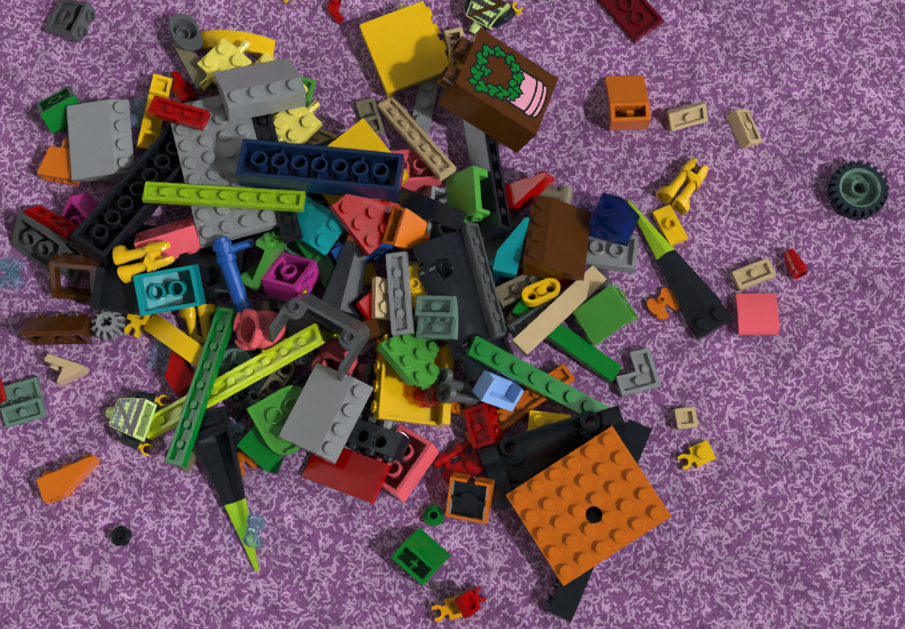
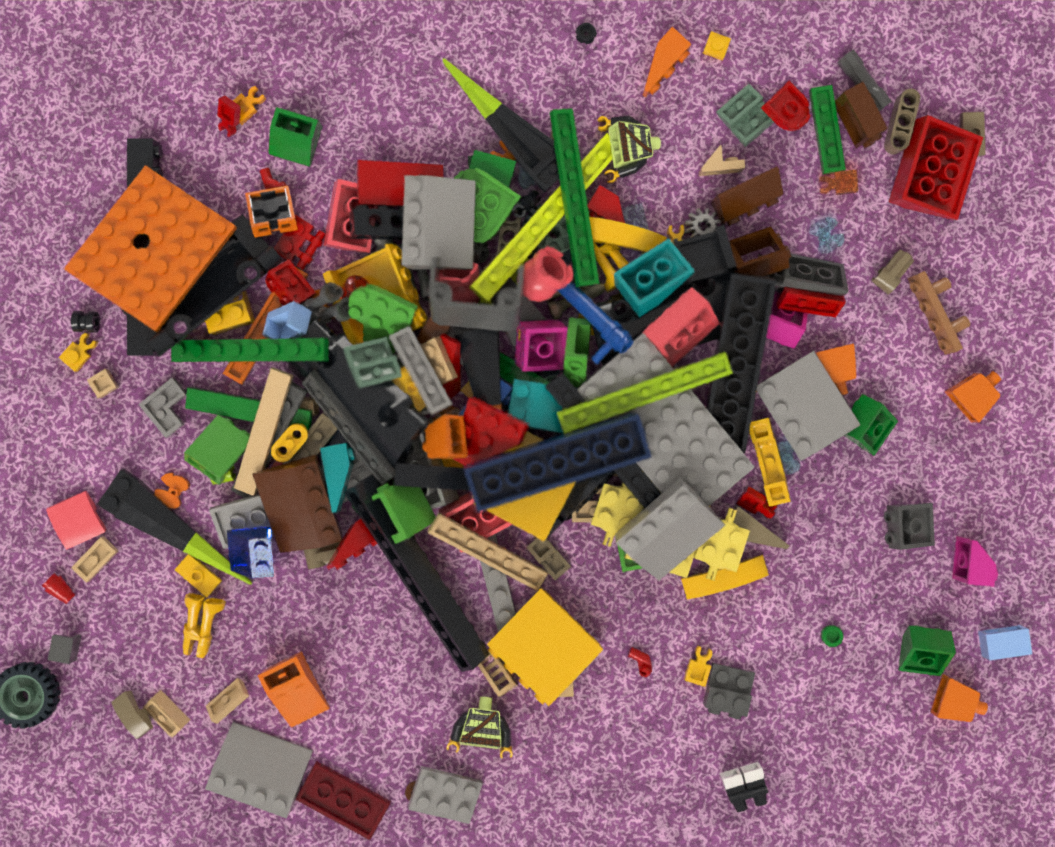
camera: 150 degrees right, 15 degrees up
(15, 473) = (716, 45): none -> yellow plate
(152, 261) = (680, 296): yellow piece -> none
(179, 113) = (737, 463): red plate -> none
(185, 32) = (781, 563): dark grey piece -> none
(255, 523) = (459, 84): clear light blue piece -> none
(433, 522) = (306, 187): green plate -> none
(462, 529) = (268, 180): none -> red arm
(496, 89) = (422, 634): reddish brown brick -> none
(679, 478) = (88, 321): none -> black wheel
(683, 53) = (259, 770): none -> light grey slope
(773, 137) = (132, 717): none -> dark tan slope
(809, 212) = (64, 648): none -> dark grey panel

